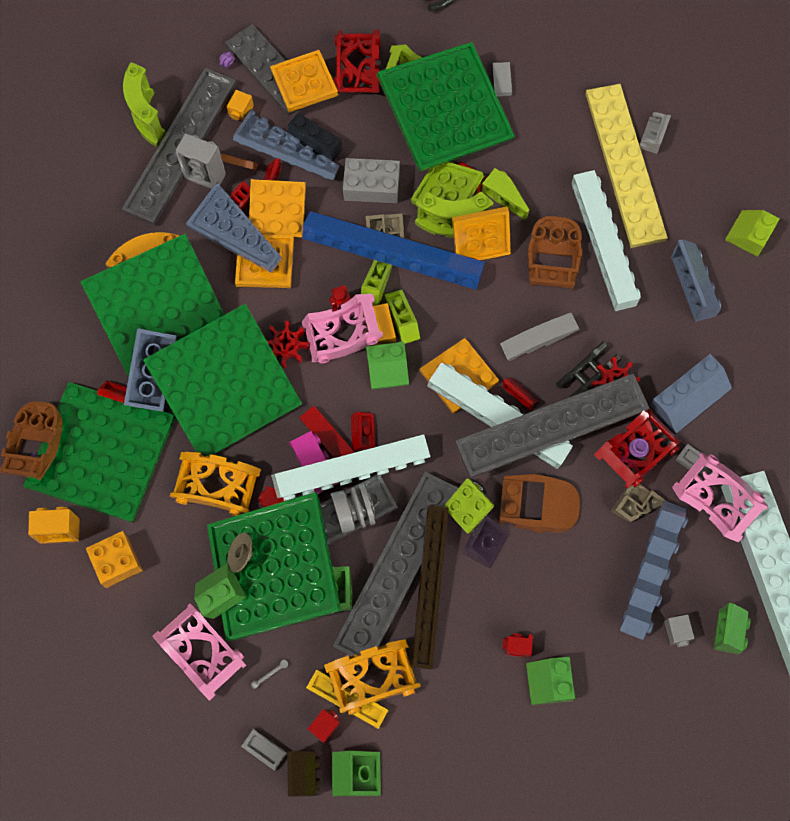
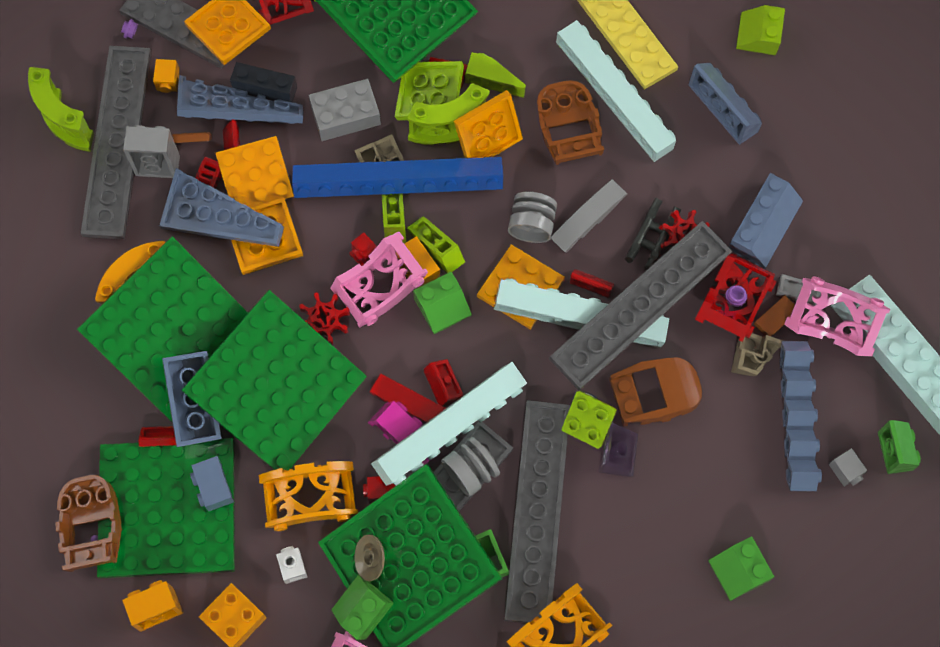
camera: 25 degrees left, 0 degrees up
(140, 445) = (211, 483): none -> sand blue brick
(178, 535) = (291, 564): none -> white brick
(429, 587) = (581, 519): dark brown plate -> none
(490, 321) = (532, 217): none -> light grey wheel
(518, 645) = (694, 545): red brick -> none
(665, 479) = (775, 317): none -> dark orange tile

